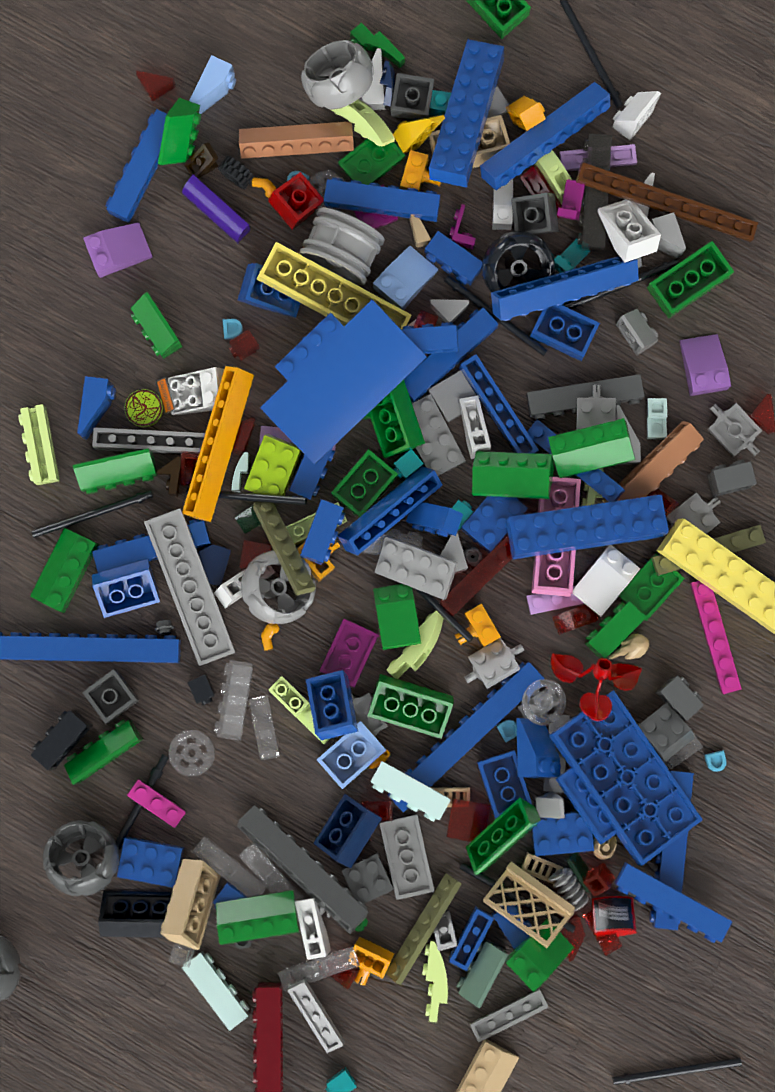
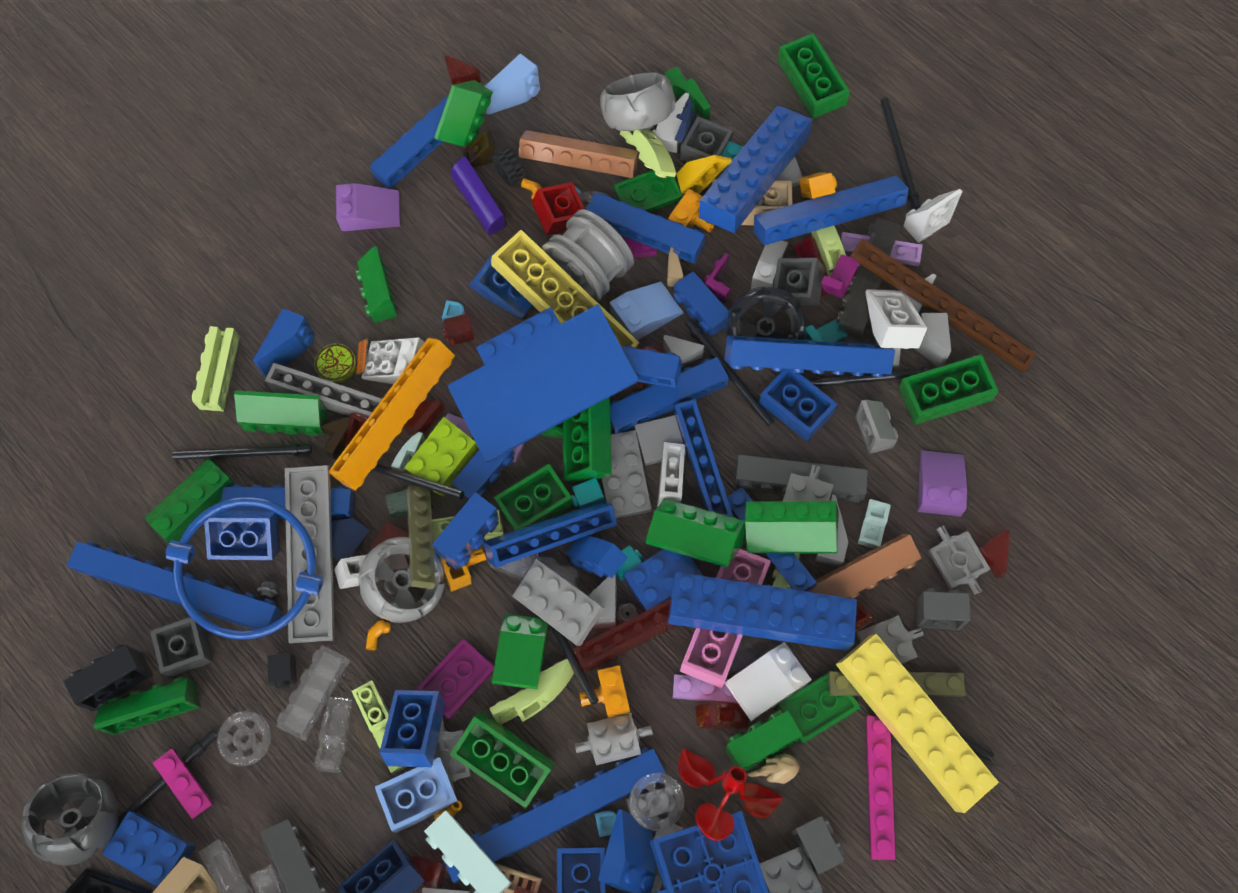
camera: 20 degrees right, 15 degrees down
(85, 620) = (183, 552): none -> blue piece

